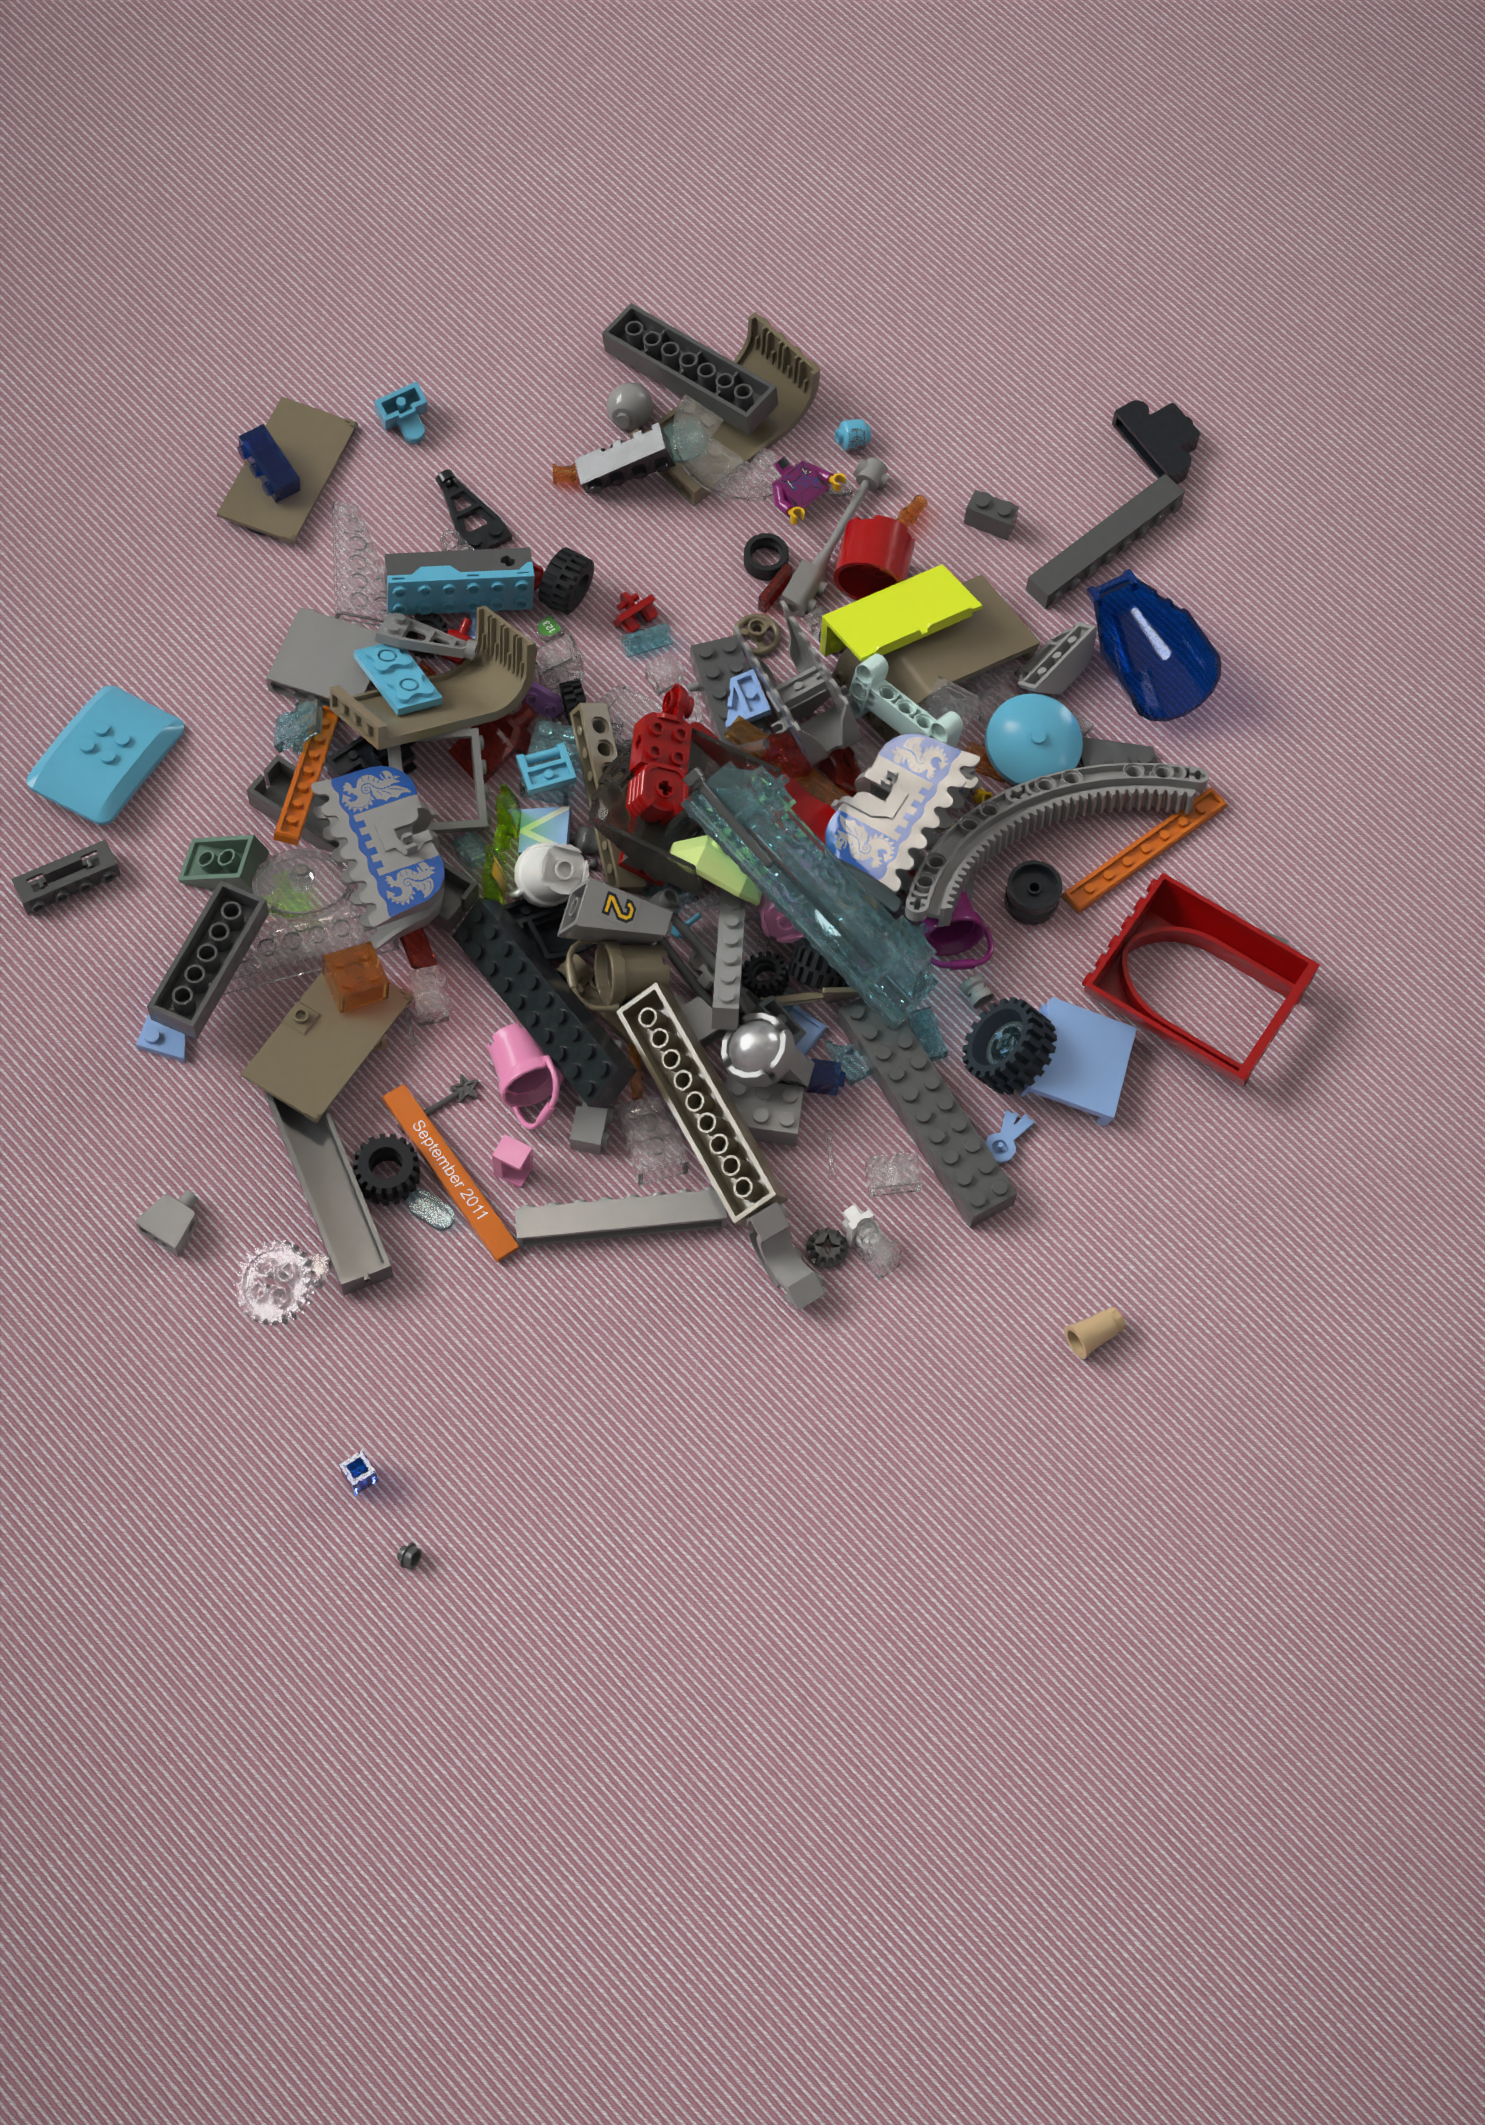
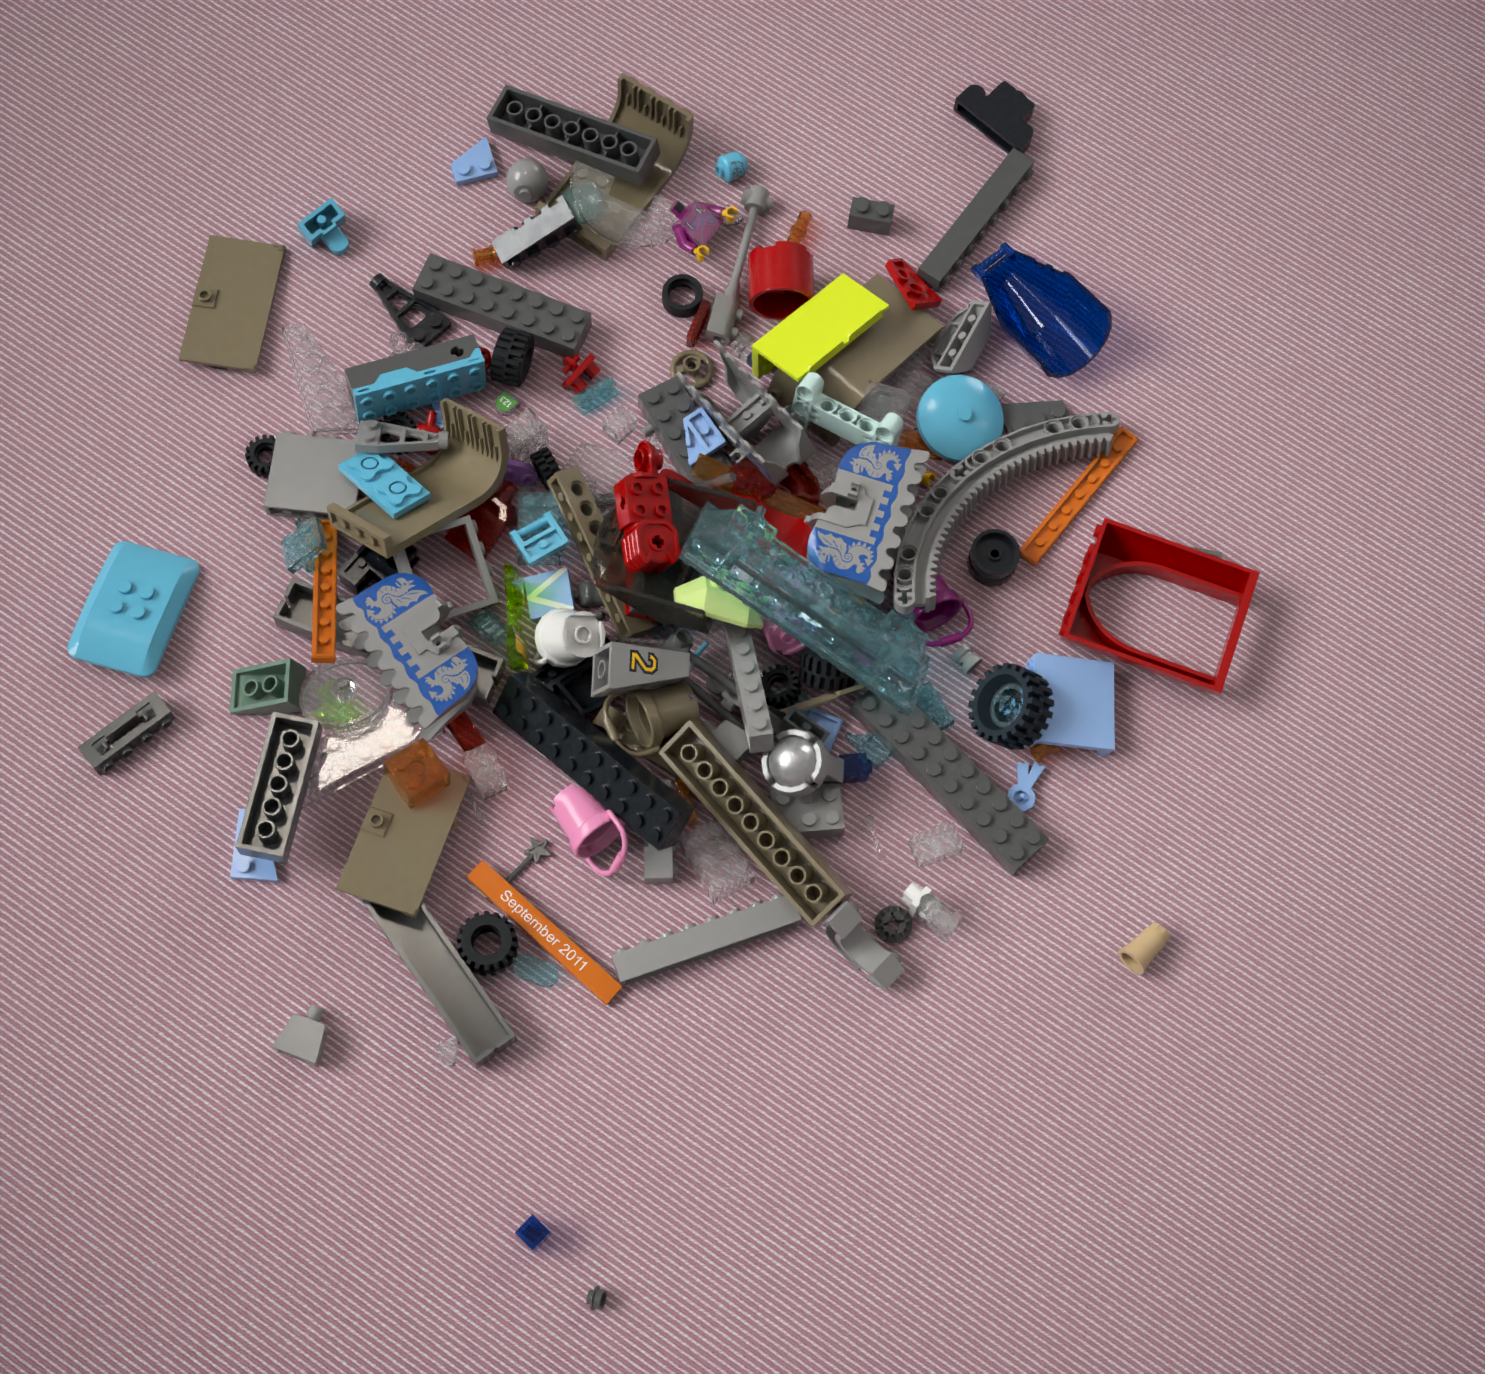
camera: 15 degrees left, 5 degrees up
(268, 463) = (215, 302): clear blue brick -> none
(268, 1306) = (413, 1096): clear gear -> none
(273, 621) = (253, 454): none -> black tyre
(512, 1161) = (599, 910): bright pink panel -> none
(563, 522) = (501, 304): none -> dark grey brick
(578, 380) = (474, 164): none -> light blue wing
(697, 781) = (687, 532): dark grey piece -> none
(1016, 595) = (912, 286): none -> red wing
(1037, 1103) = (1041, 751): none -> clear orange bush

